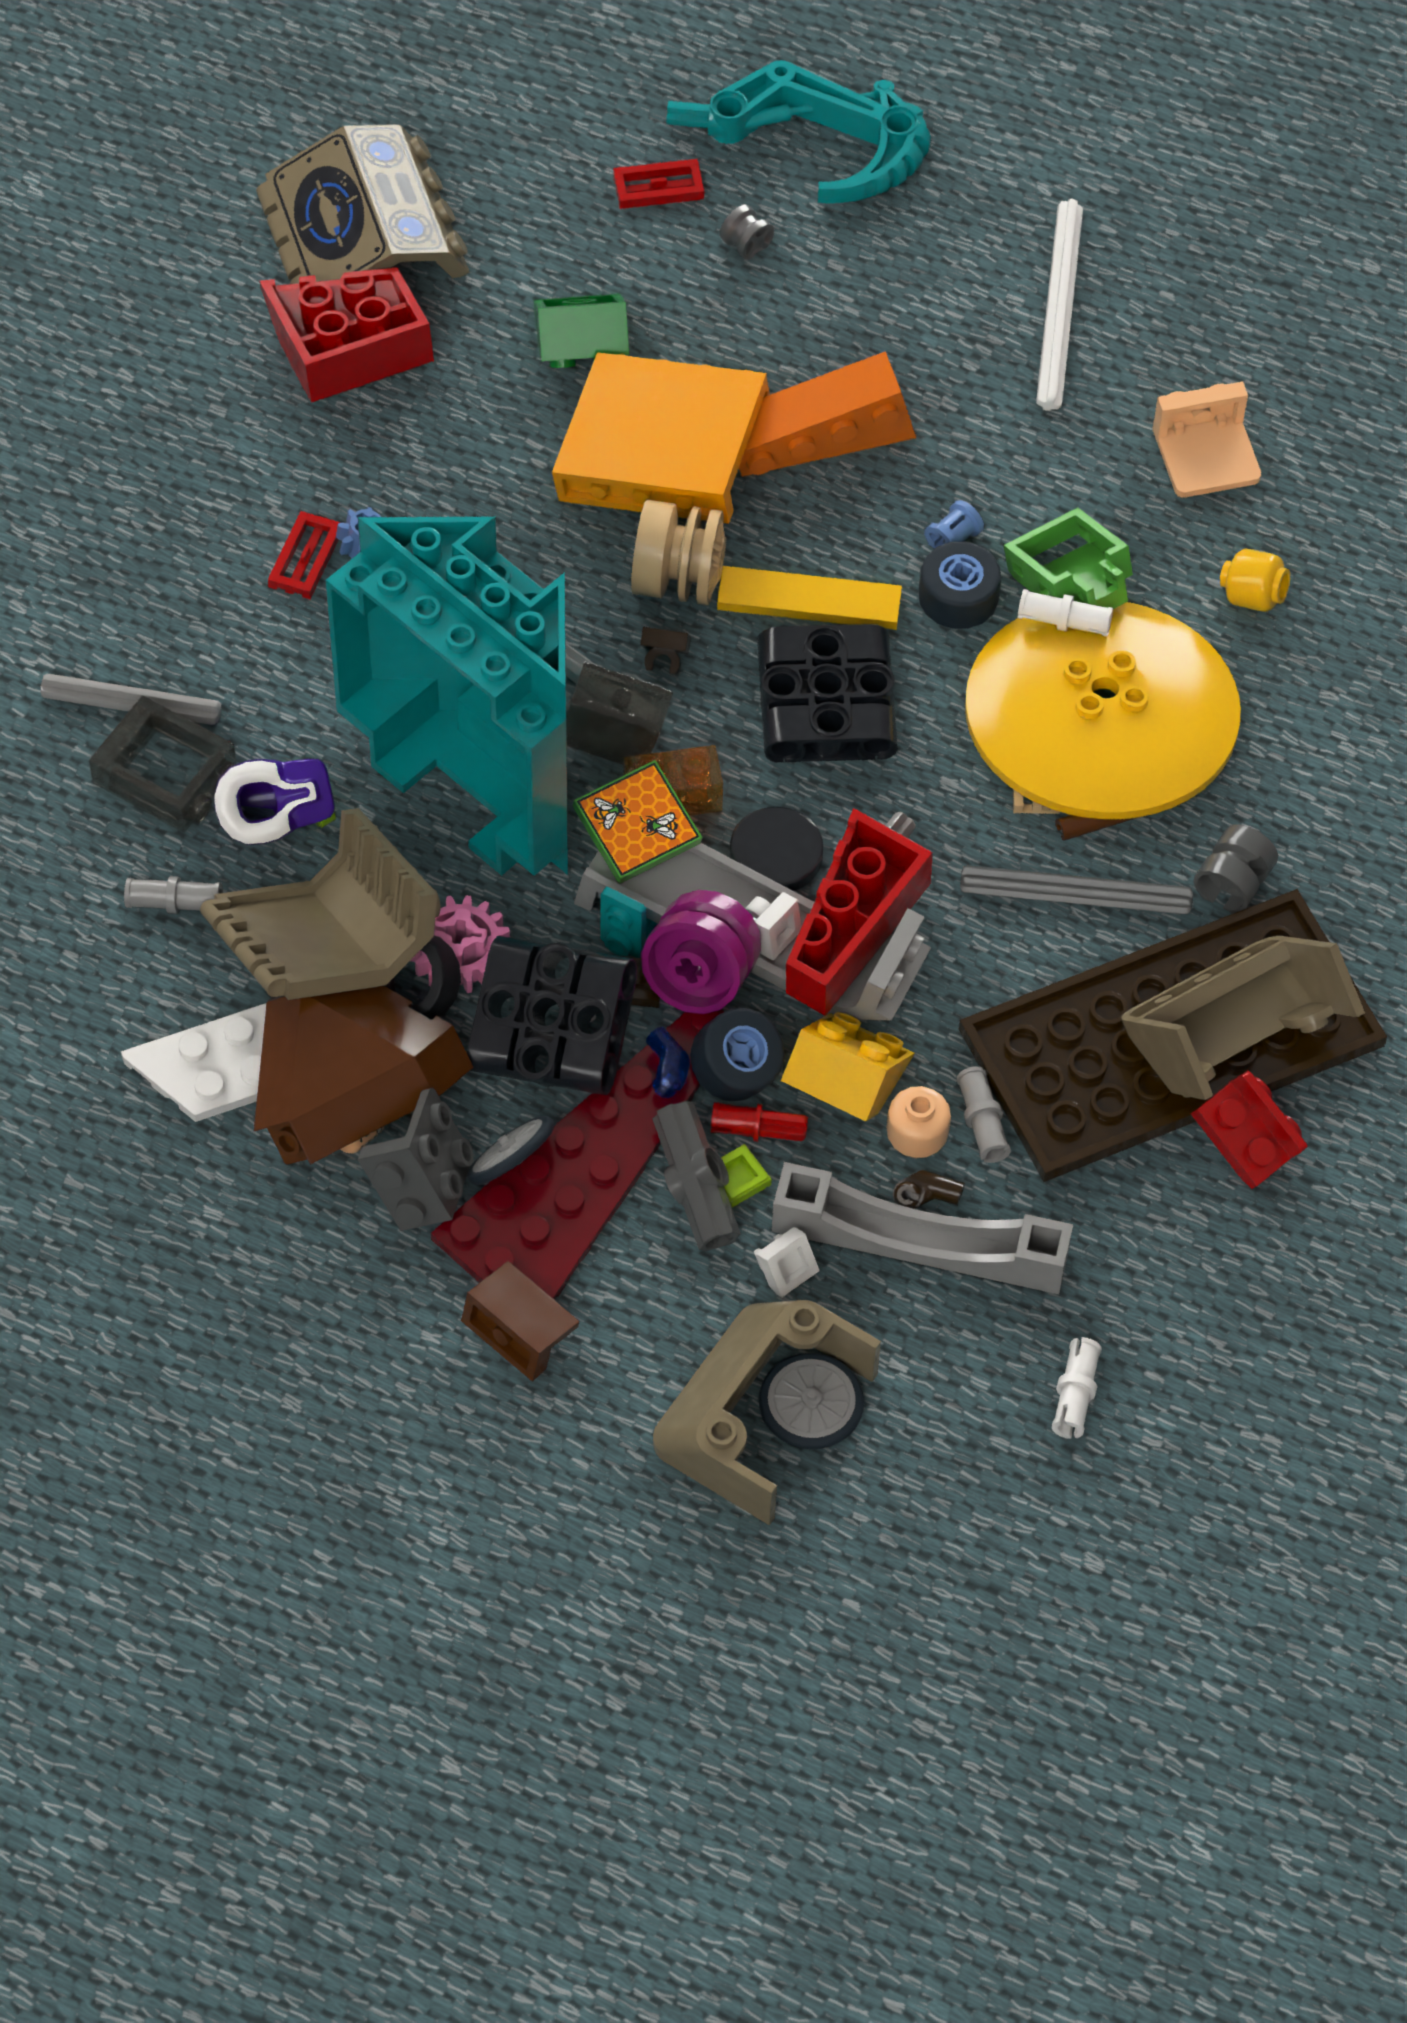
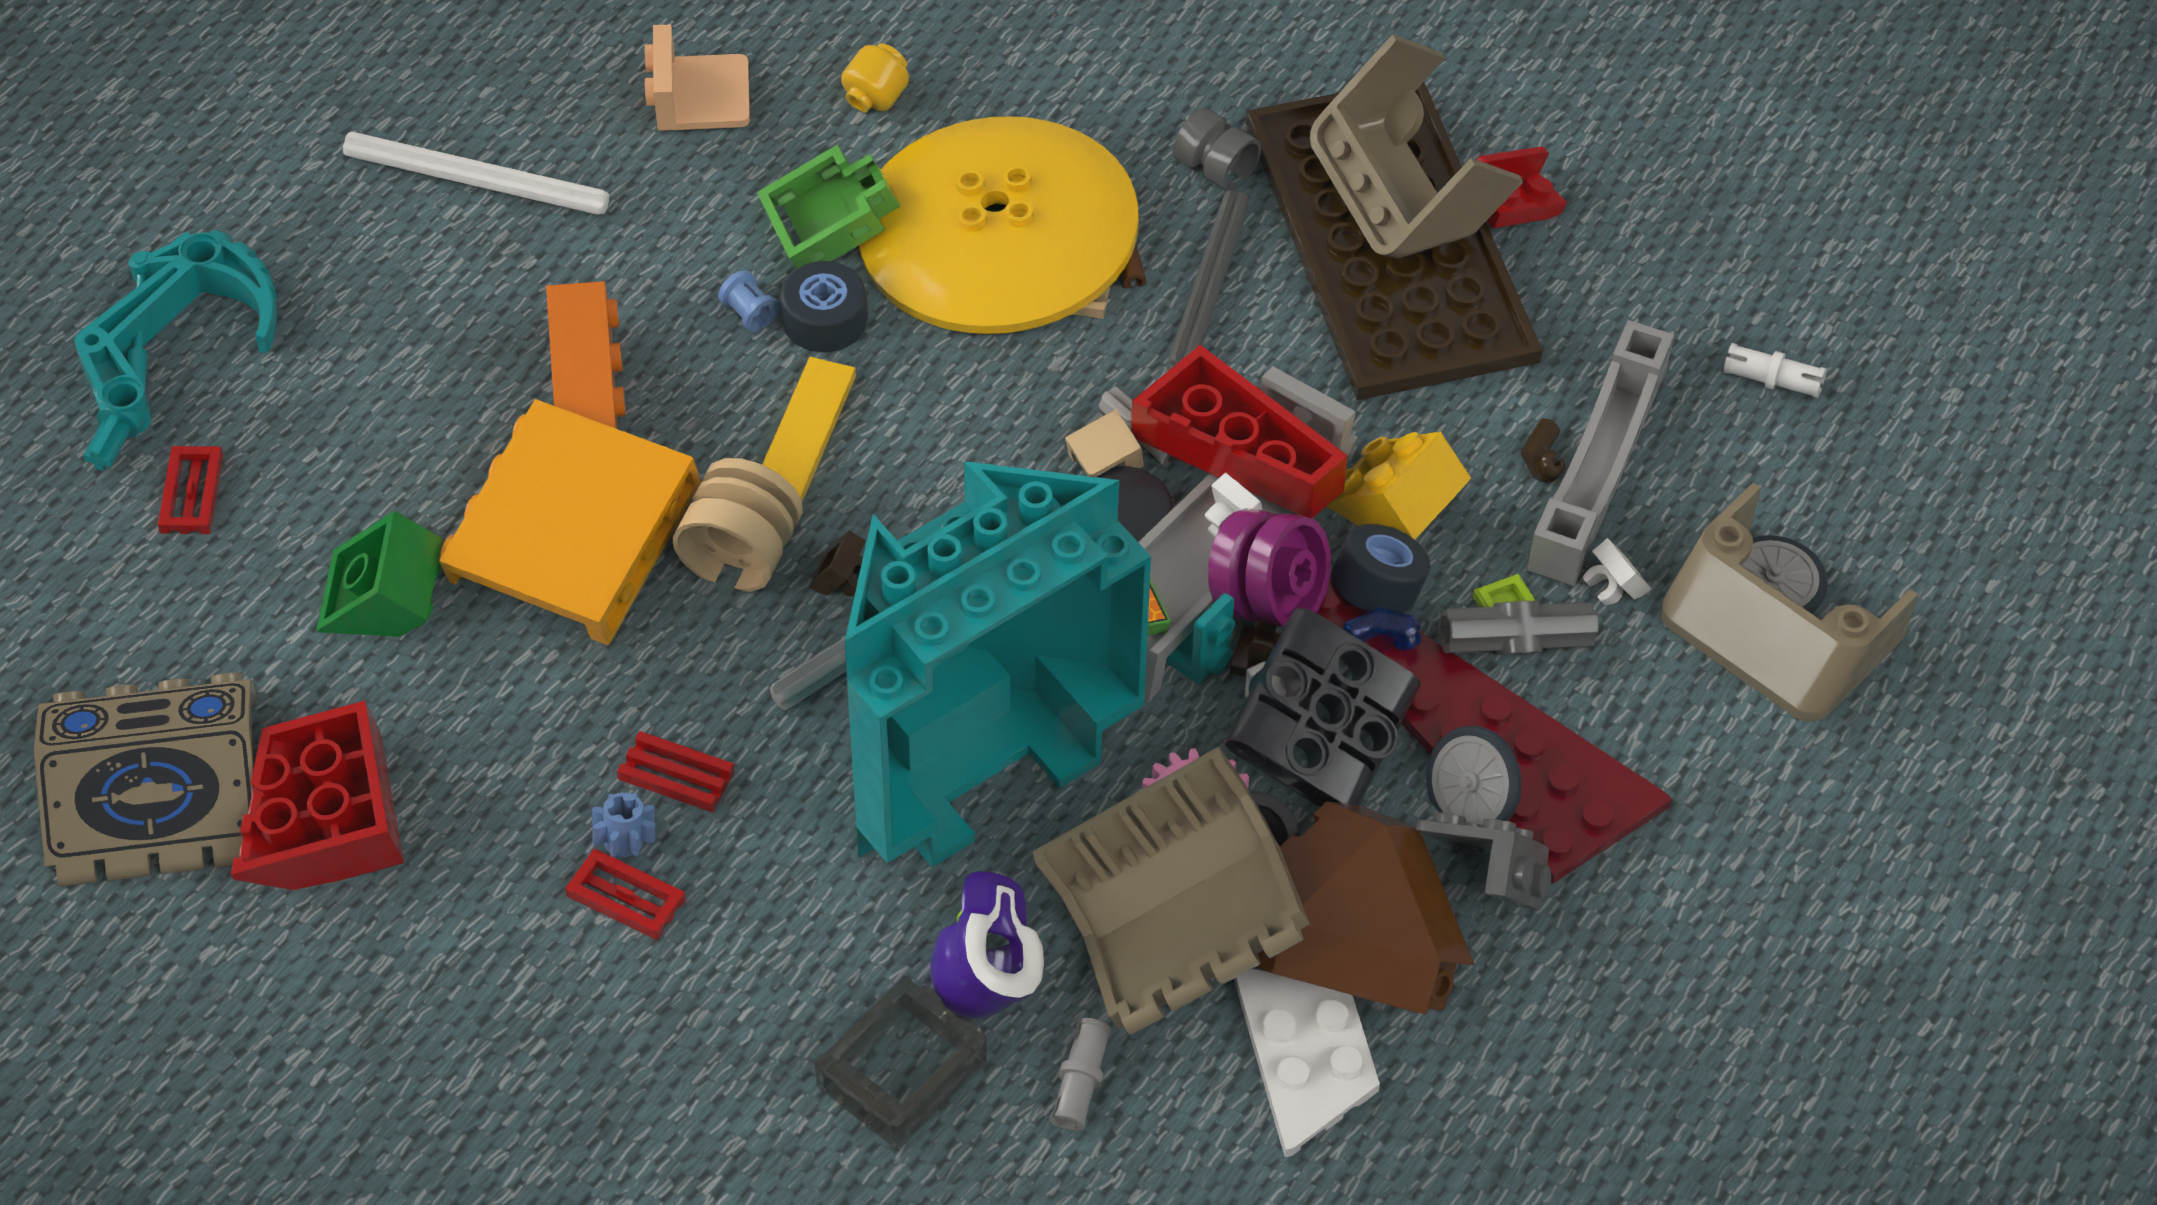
camera: 80 degrees left, 5 degrees down
(125, 697) = (791, 1096): light grey axle -> none
(517, 1319) = (1673, 805): reddish brown panel -> none
(746, 231) = (296, 414): flat silver wheel -> none
(758, 1122) = (1449, 573): red axle -> none
(829, 815) = (1104, 445): none -> tan panel
(854, 666) = (931, 433): black connector -> none
(918, 1122) = (1477, 435): light nougat head -> none
(983, 1114) = (1464, 392): light grey pin -> none
(1065, 612) = (897, 215): white pin -> none

